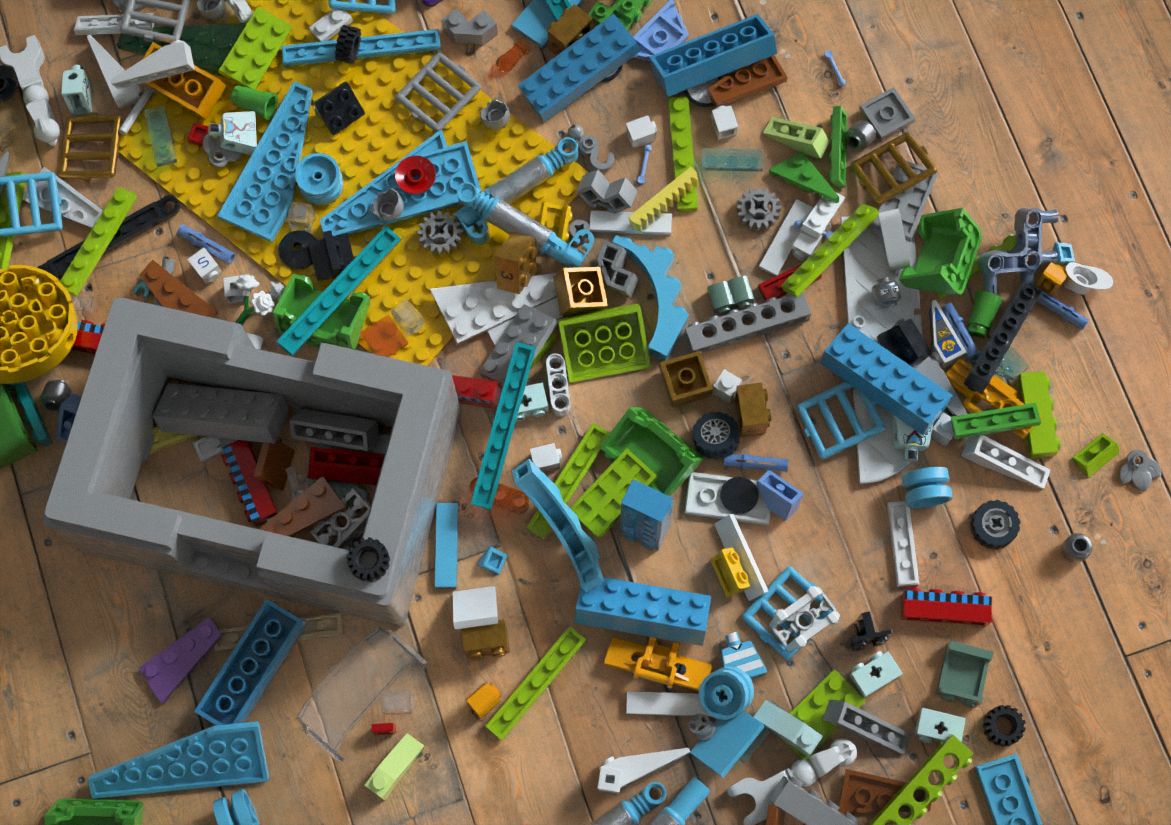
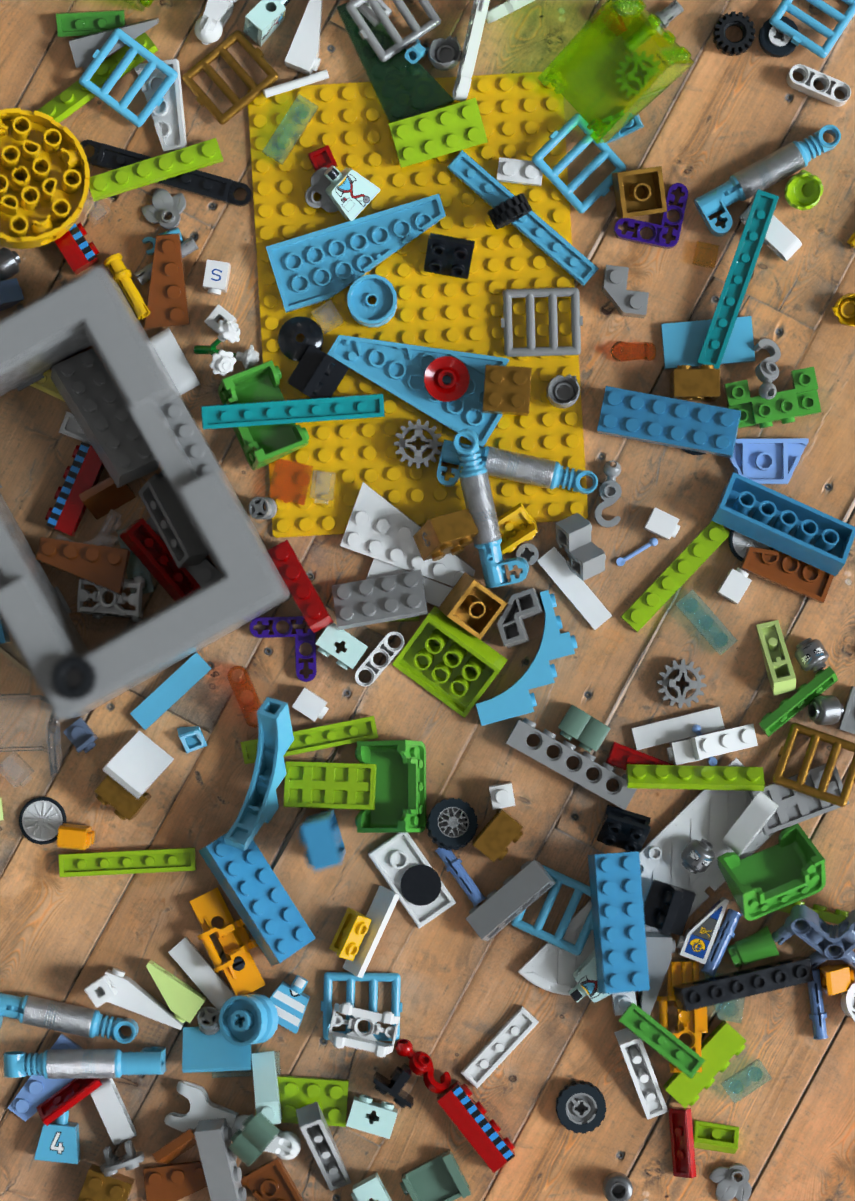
camera: 45 degrees right, 15 degrees up
(127, 260) = (164, 205): none -> light grey plate
(165, 62) = (350, 79): white slope -> none
(187, 233) = (234, 247): medium blue pin -> none
(192, 90) = (349, 99): light orange brick -> none
(193, 18) = (416, 52): none -> medium azure bar
(254, 100) = (391, 178): bright green plant -> none
(387, 205) = (398, 382): light grey hair -> none
(418, 635) = (81, 736): none -> sand blue bracket
(451, 718) = (41, 820): none -> white wheel
(459, 144) = (507, 390): none -> pearl gold brick
(474, 422) = (300, 638): none -> dark purple beam
(503, 426) = (300, 652): teal plate -> none
(664, 198) = (615, 600): light yellow gear -> none
(664, 733) = (179, 996): none -> yellowish green slope
(686, 379) = (477, 758): pearl gold brick -> none
(779, 495) = (447, 917): medium blue slope -> none
(803, 174) = (745, 690): bright green wing -> none
(805, 441) = (510, 900): none -> light grey brick
(815, 113) = (811, 655): none -> flat silver head
(817, 763) = (253, 1139): none -> sand green brick
(823, 327) = (624, 829): none -> black bracket
(870, 604) = (422, 1065): none -> red piece
(927, 487) = (561, 1027): medium azure wheel -> none
(1073, 398) = (746, 1080): none -> clear light blue plate
(1081, 477) = (682, 1142): none -> red tile

